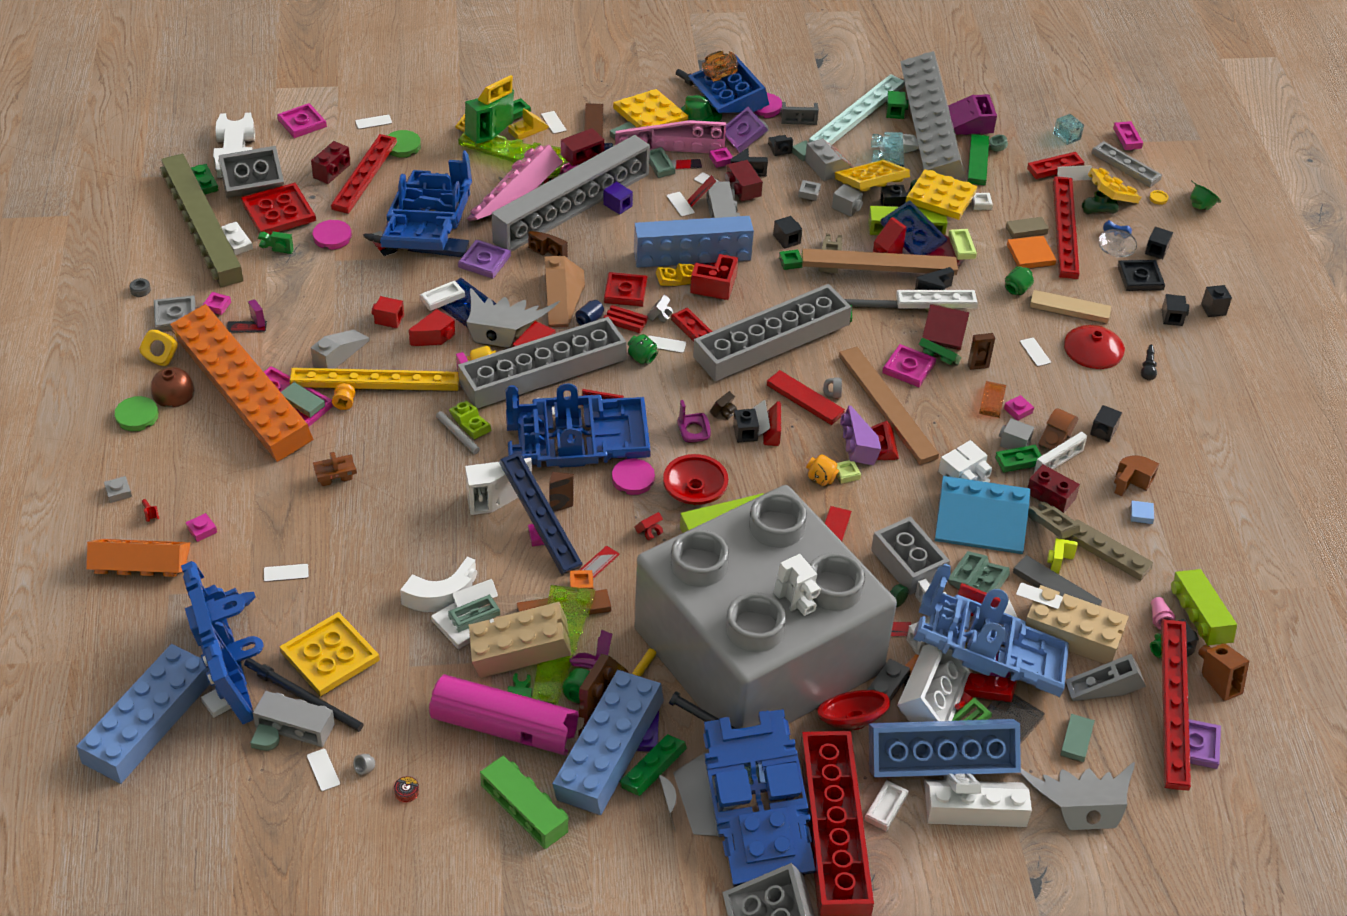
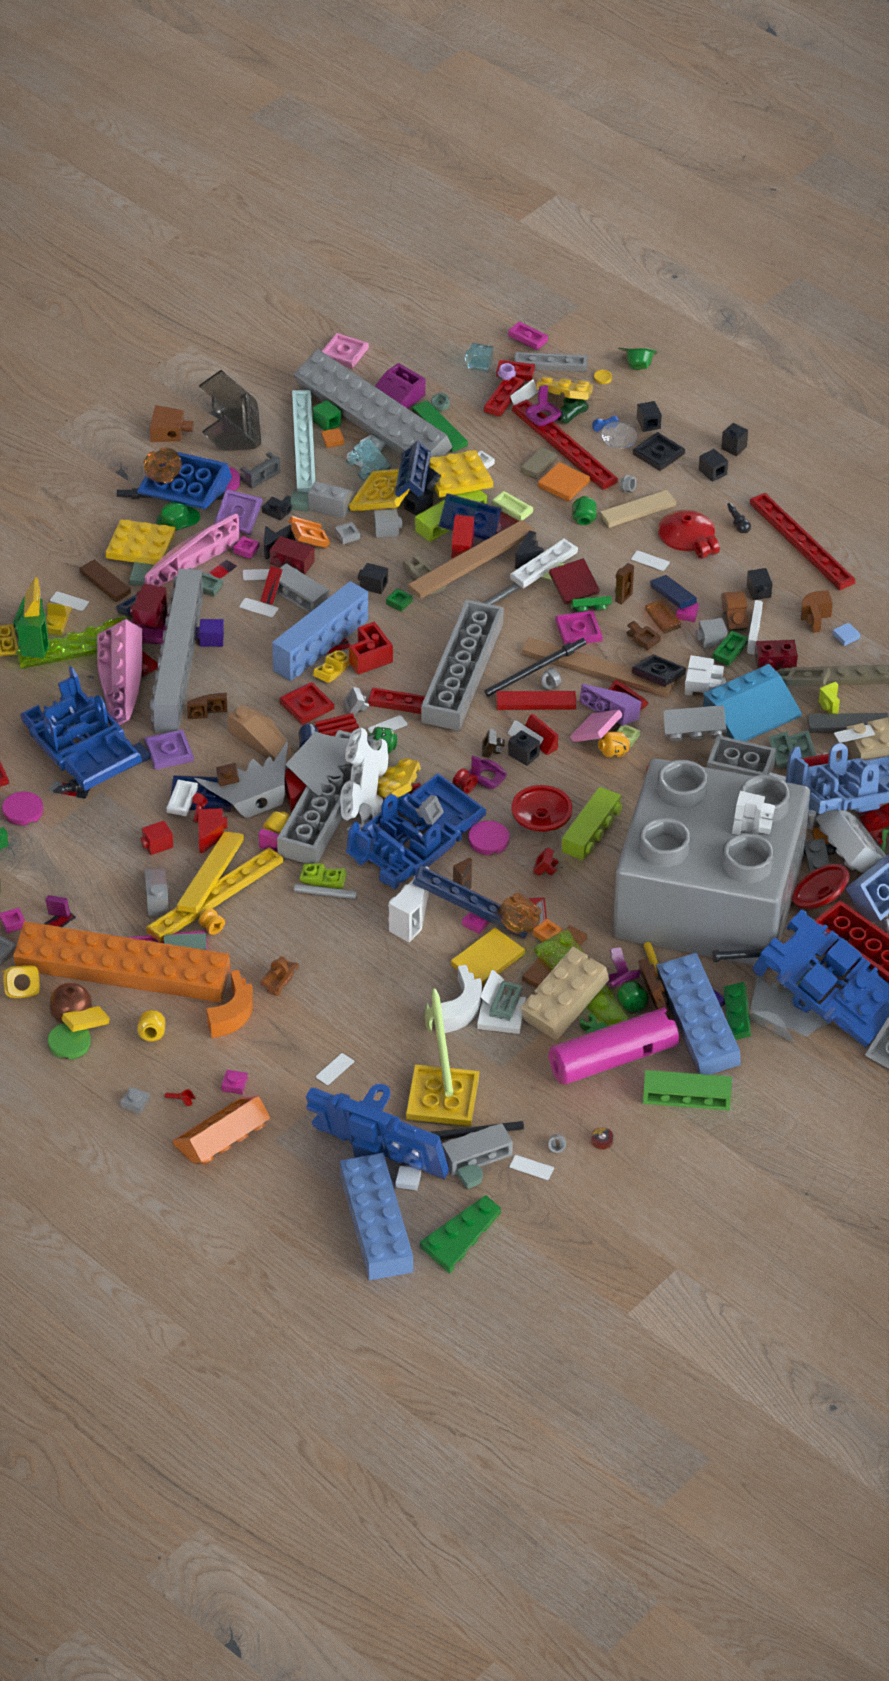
camera: 40 degrees left, 0 degrees up
(163, 405) = (85, 1019): none -> yellow tile
(182, 780) = (454, 1238): none -> green wing
(197, 441) = (151, 1025): none -> yellow head
(271, 474) = (234, 1014): none -> orange arch
(373, 609) = (436, 1013): none -> yellowish green piece
(388, 360) = (210, 872): none -> yellow tile
(451, 306) = (201, 801): none -> red hand
(492, 299) = (227, 774): none -> reddish brown plate
(512, 568) = (489, 953): none -> yellow tile
(567, 326) = (319, 759): none -> light grey piece
(576, 539) = (519, 904): none -> clear orange plate
(588, 354) = (367, 766): none -> white piece
(596, 419) = (430, 810): none -> light grey tile
(601, 383) = (398, 778): none -> yellow plate
(667, 420) = (465, 780): none -> red wheel
(770, 48) = (168, 424): none -> dark orange torso
(776, 171) = (309, 532): none -> orange plate
(824, 445) = (596, 725): none -> bright pink tile
(835, 68) = (240, 414): none -> clear smoke windscreen
(872, 373) = (566, 650): none -> black bar
(884, 122) = (332, 438): none -> orange tile
(902, 169) = (413, 469): none -> dark blue fence
(903, 494) = (694, 723): none -> light grey brick
(910, 183) = (432, 478): none -> black tile
(932, 436) = (658, 670): none -> black tile
(953, 404) = (643, 636): none -> reddish brown plate
(968, 71) = (345, 350): none -> bright pink tile
(1020, 384) = (673, 592): none -> dark blue tile
(1074, 147) = (506, 371): none -> lavender plate
(1075, 186) = (543, 405): none -> magenta piece
(1083, 283) = (628, 483): none -> light grey plate
(1088, 153) = (523, 370): none -> red plate
(1088, 365) = (706, 547): none -> red wheel
(1189, 416) = (802, 541): none -> red tile

